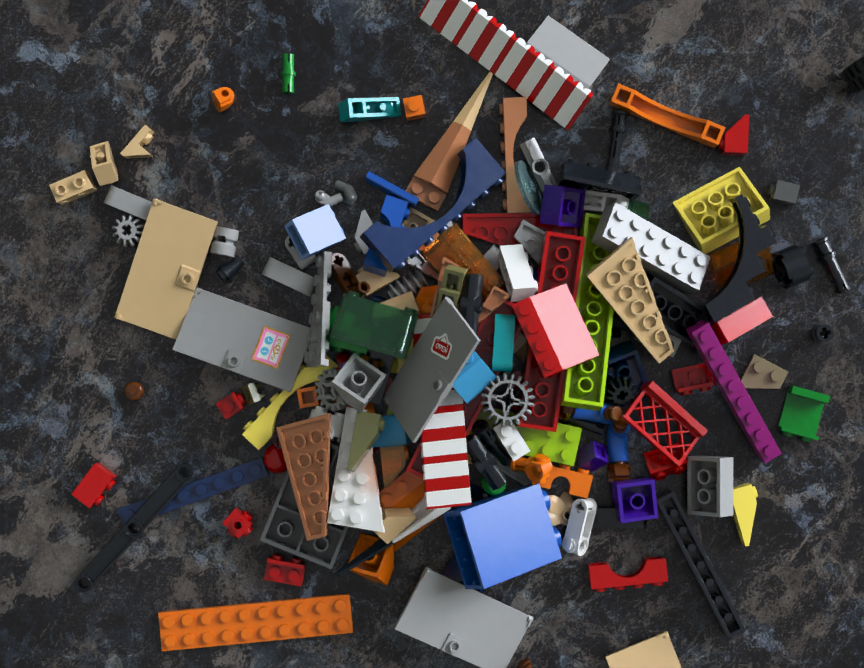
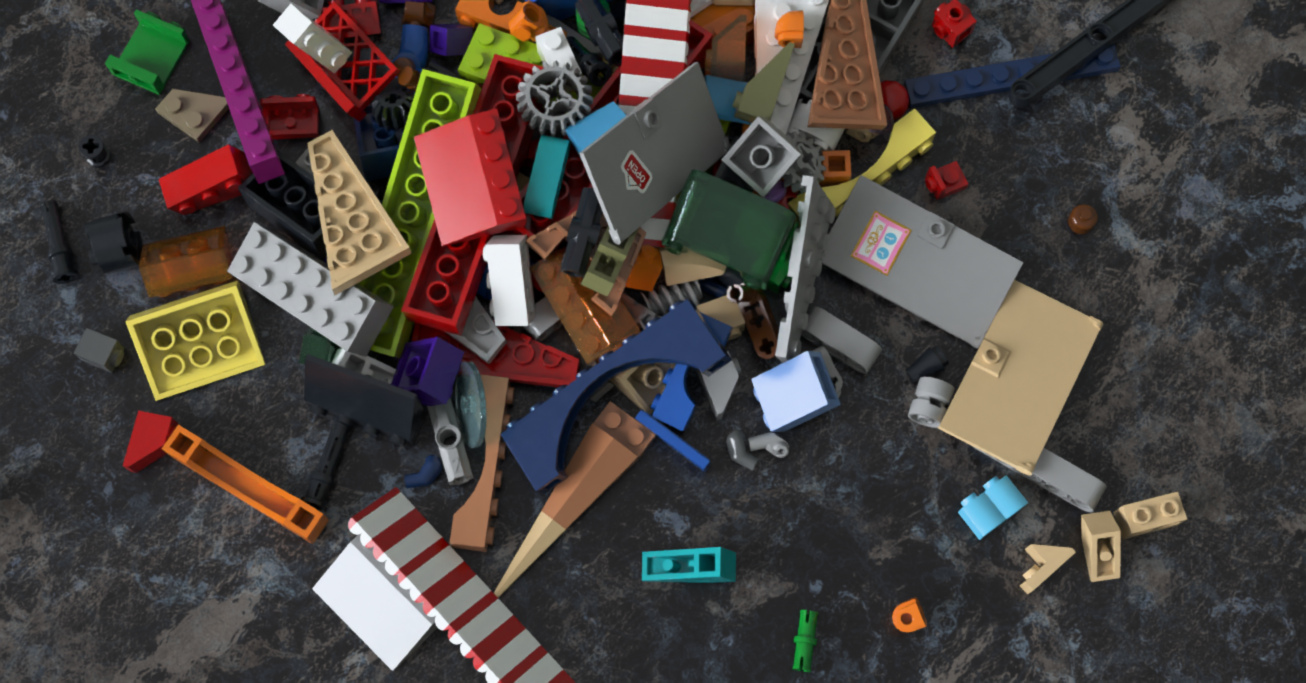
camera: 175 degrees left, 15 degrees down
(94, 485) = (1150, 100): red brick -> none
(121, 232) = (1081, 448): light grey gear -> none
(176, 178) = (992, 506): none -> medium azure brick
(251, 394) = (916, 188): olive tile -> none
(352, 483) = (790, 28): none -> orange piece
(414, 107) = (621, 556): orange brick -> none
(549, 144) = (427, 474): none -> dark blue arm
(685, 424) = (312, 38): none -> white brick
(752, 240) = (176, 240): black arch -> none

